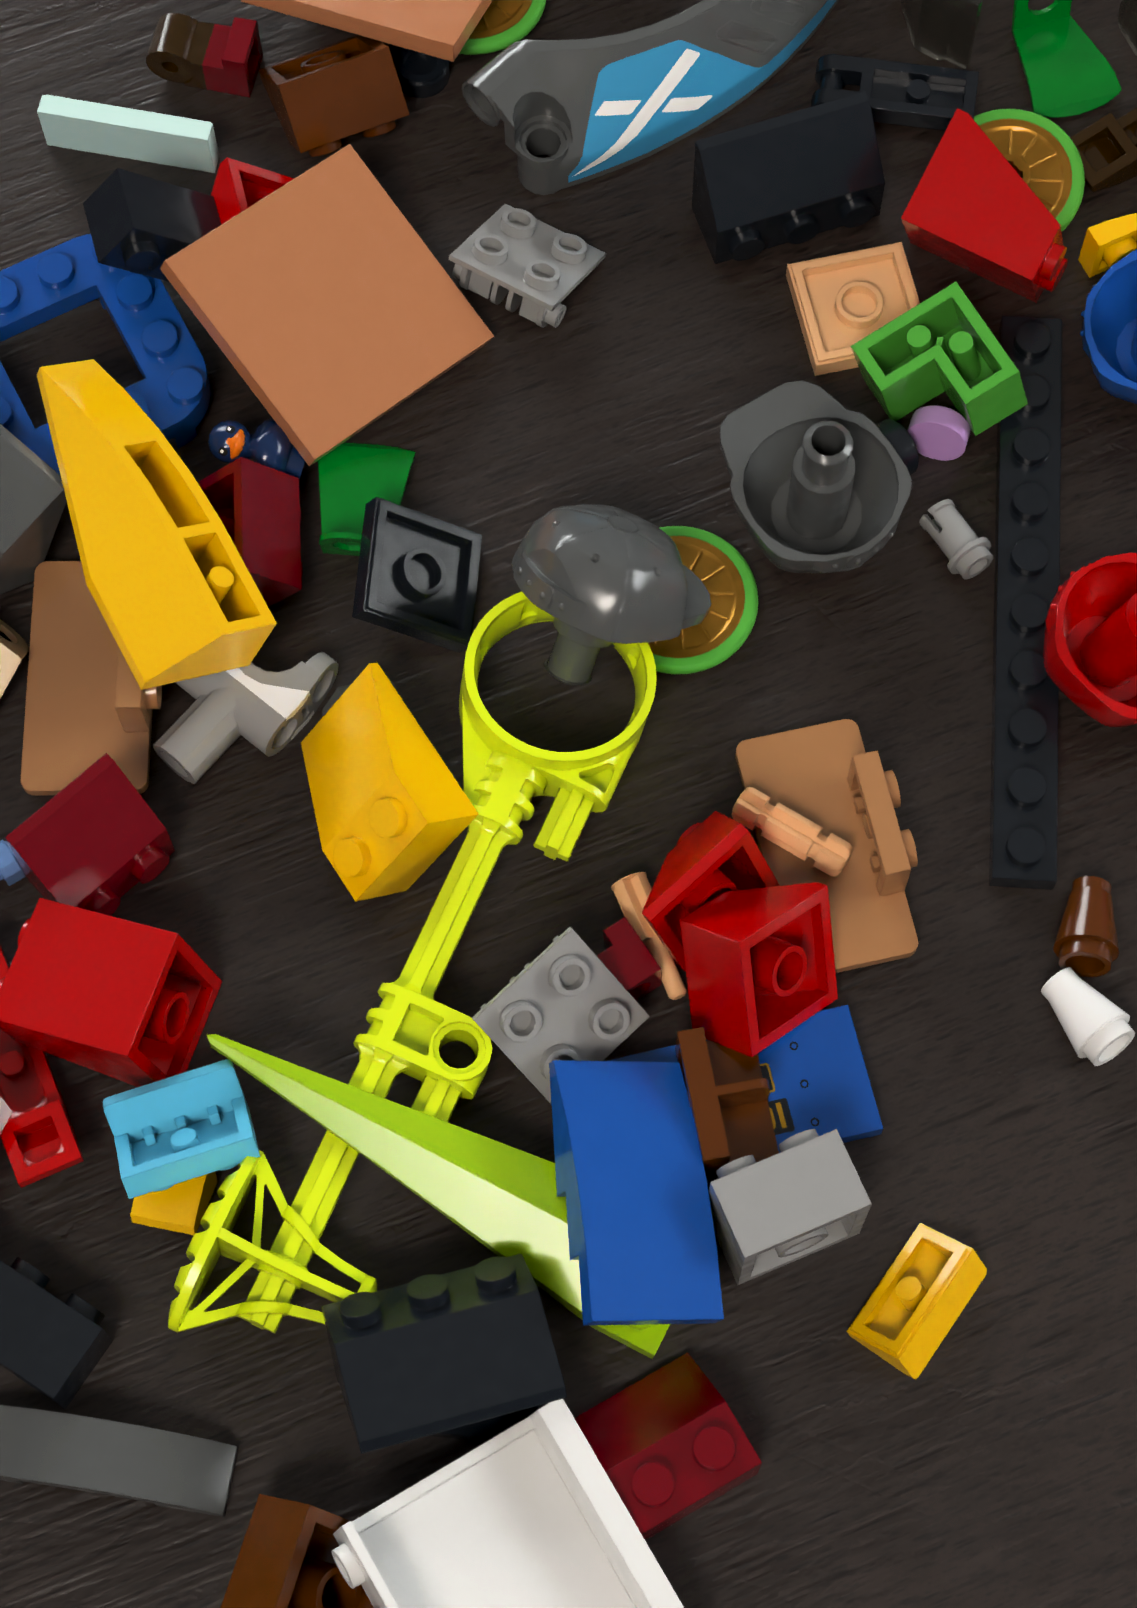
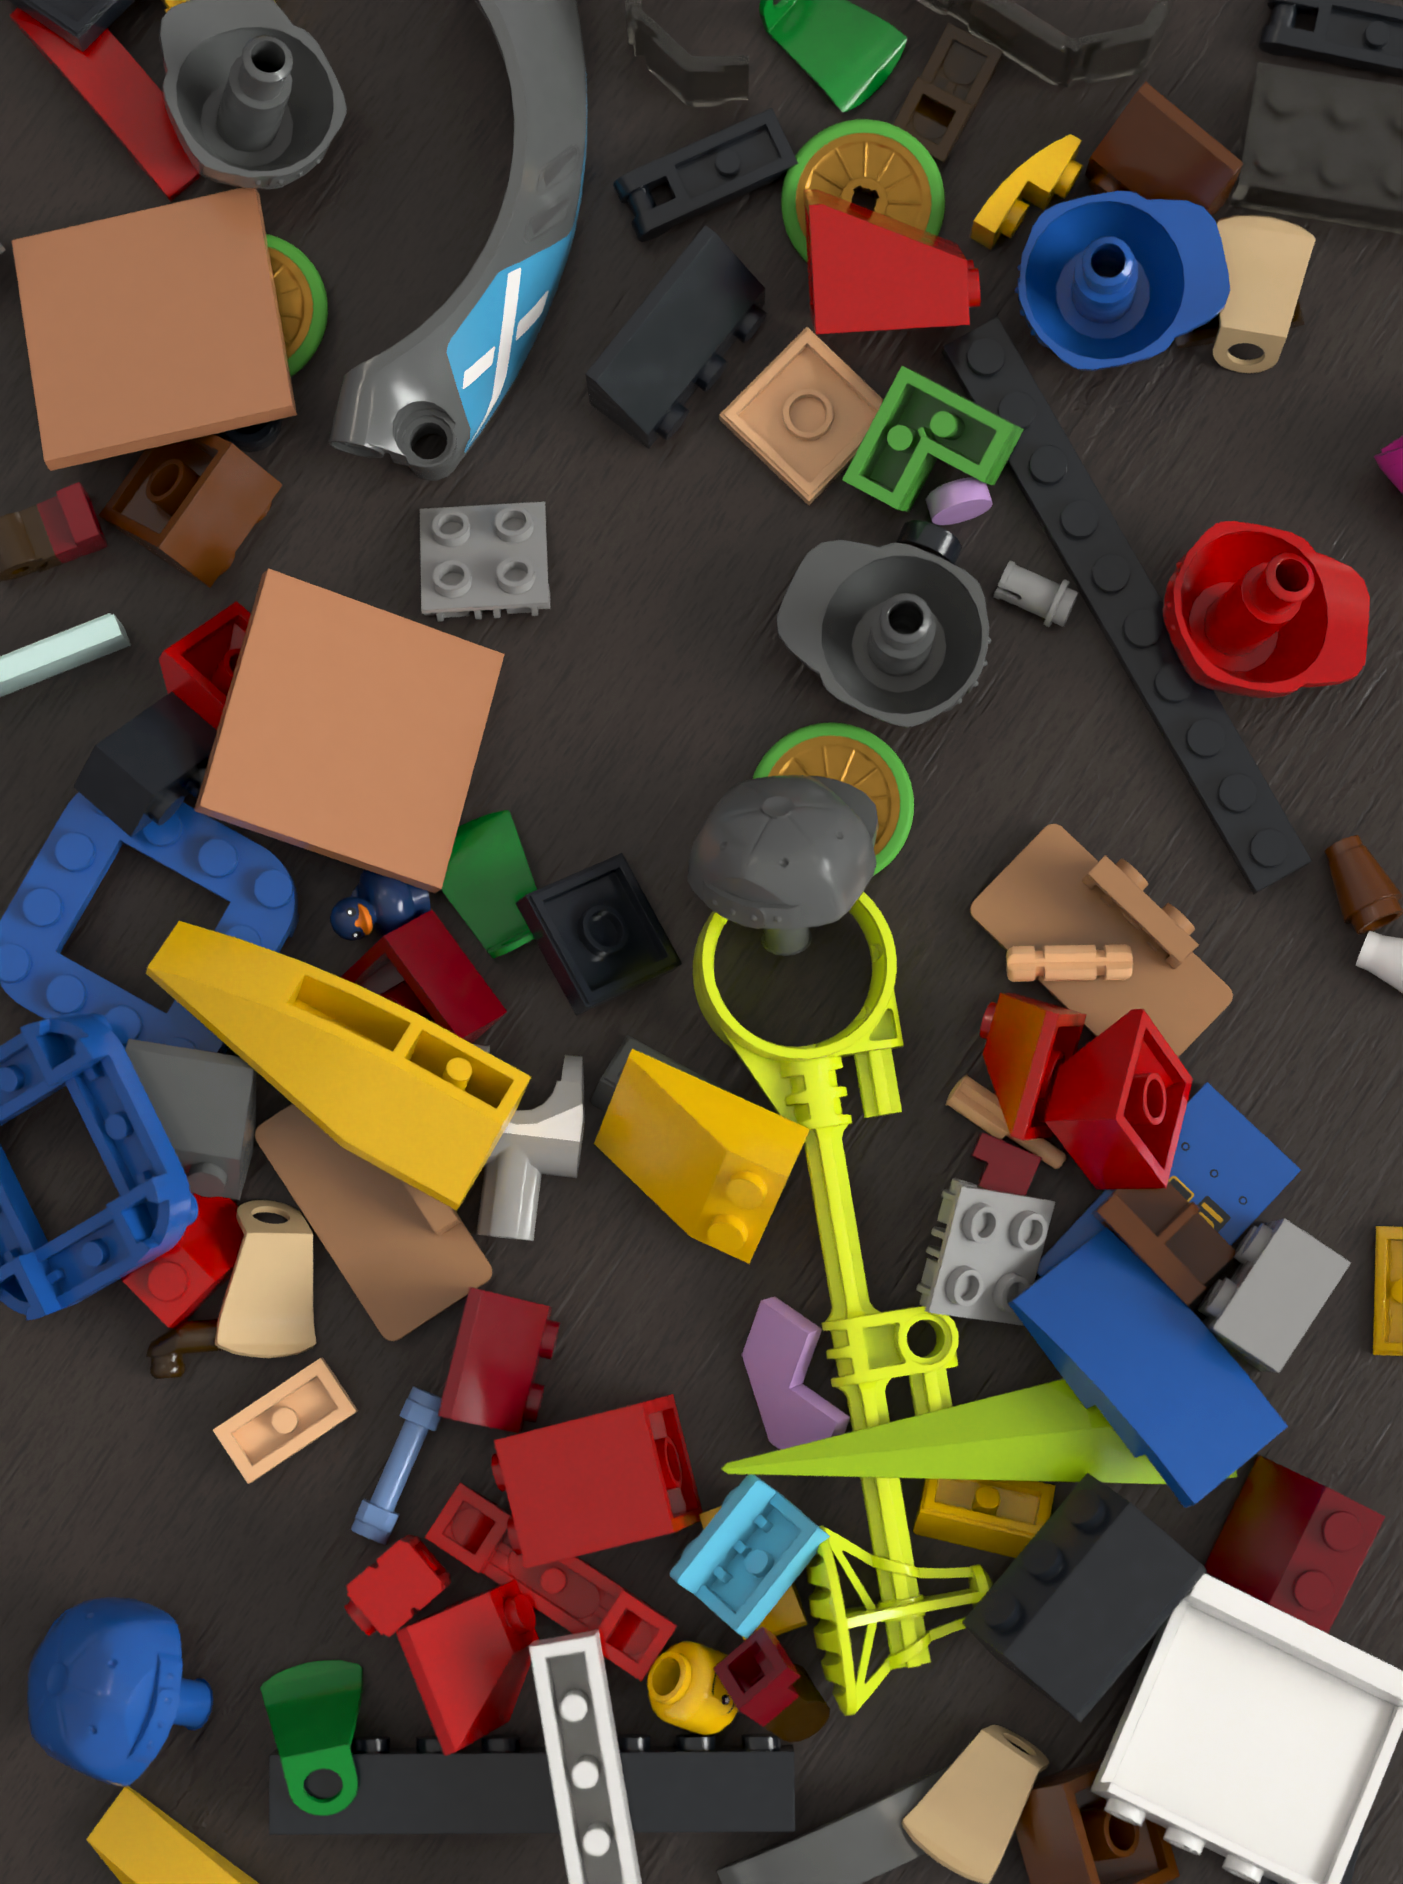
camera: 30 degrees left, 15 degrees up
(61, 1224) = (688, 1691): none -> yellow head
(115, 1256) = (772, 1688): none -> dark red leg
(227, 1483) = (977, 1804): none -> tan piece
(320, 1008) = (776, 1364): none -> lavender tile
(407, 1234) = (984, 1513): none -> yellow slope

